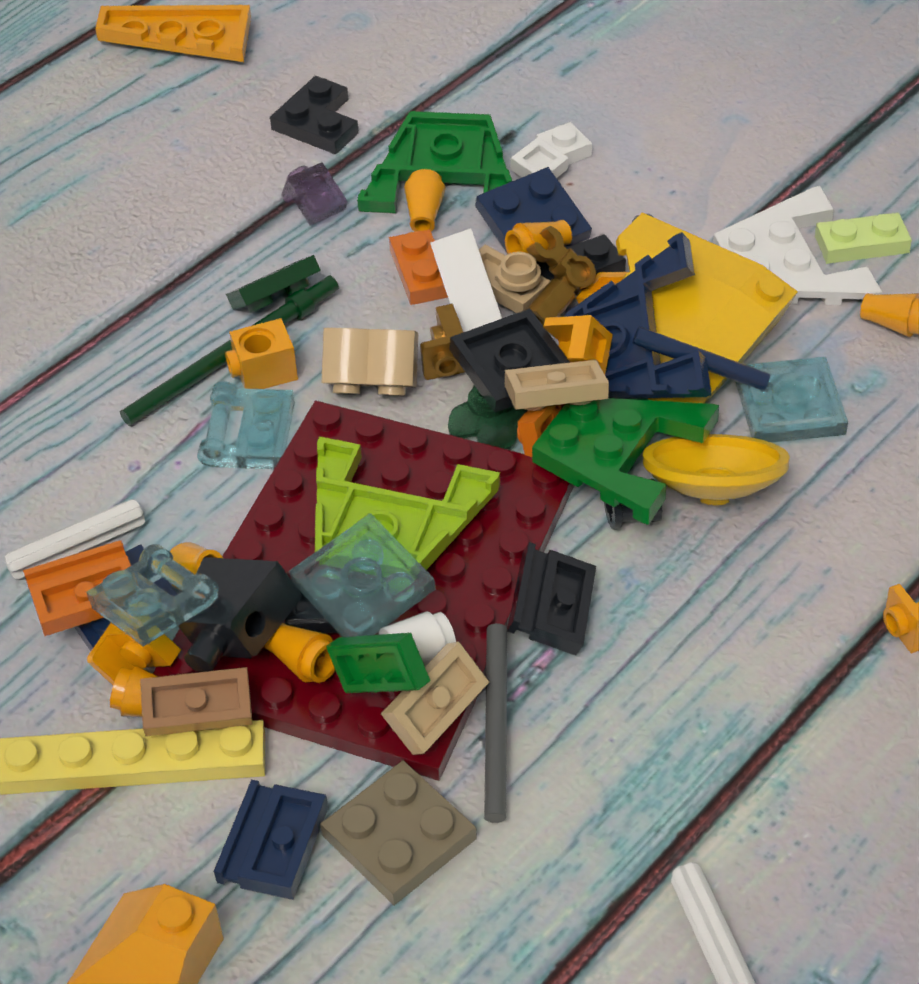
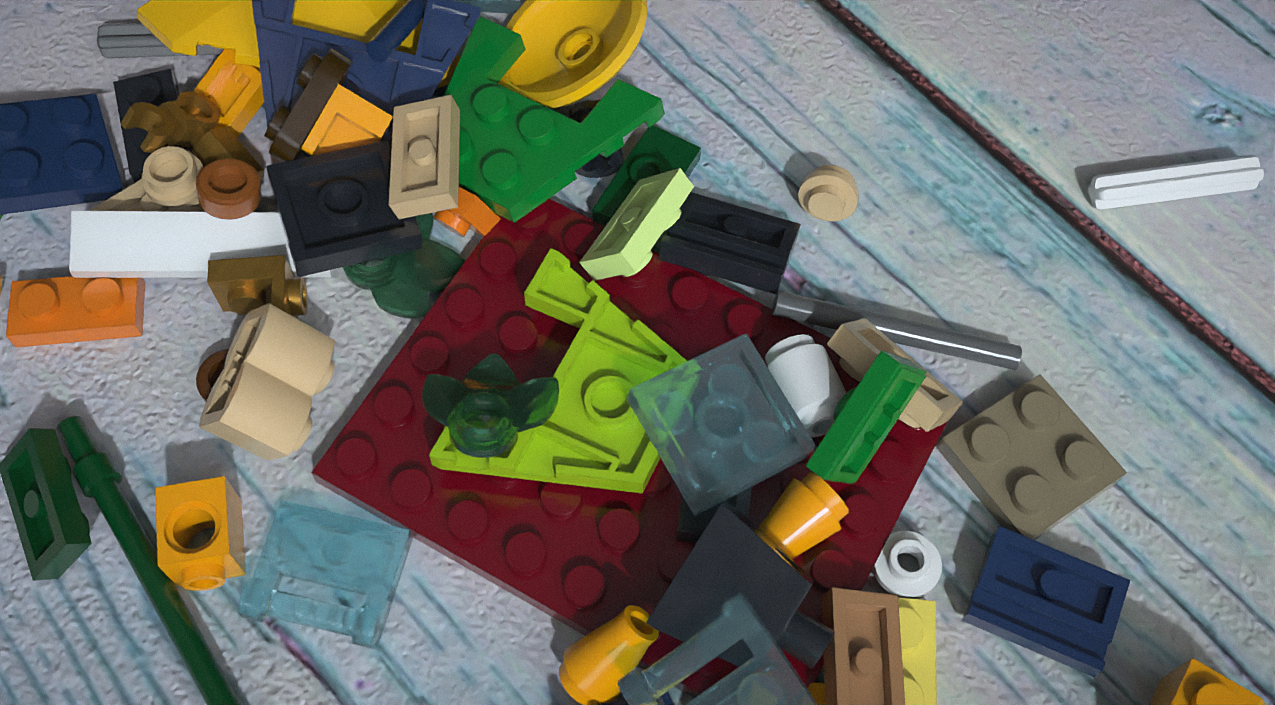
camera: 85 degrees left, 15 degrees up
(292, 759) = (899, 581): none -> white plate
(356, 454) = (489, 406): none -> clear green plate
(512, 297) = (228, 189): none -> dark orange tile
(516, 518) = (637, 225): none -> yellowish green plate
(528, 233) = (114, 151): light orange cone -> none
(602, 307) = (319, 80): none -> dark brown plate
(608, 547) = (652, 155): none -> dark green plate
(620, 662) = (829, 193): none -> tan plate

